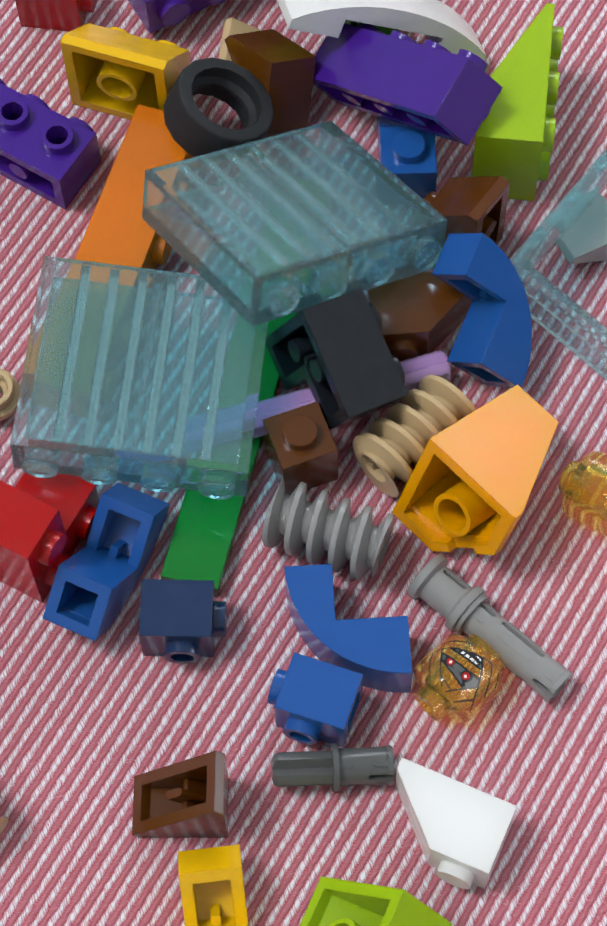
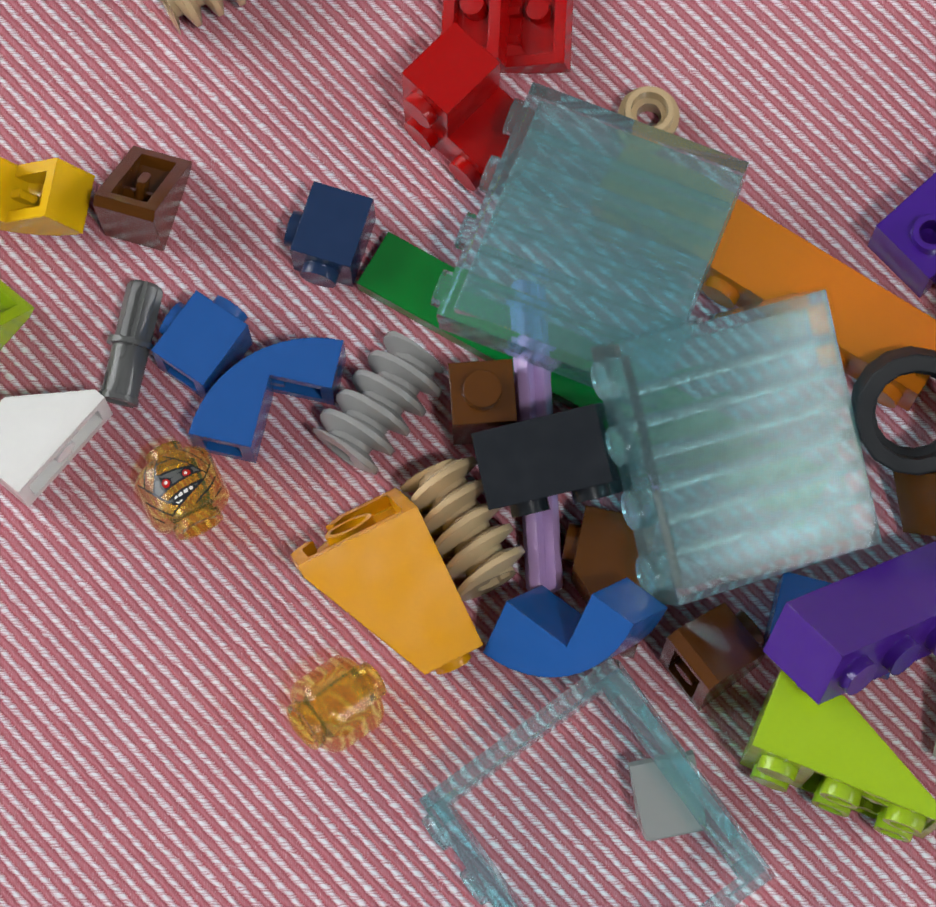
camera: 105 degrees right, 10 degrees up
(103, 574) = (406, 174): blue brick -> none
(469, 612) = (253, 523): light grey pin -> none

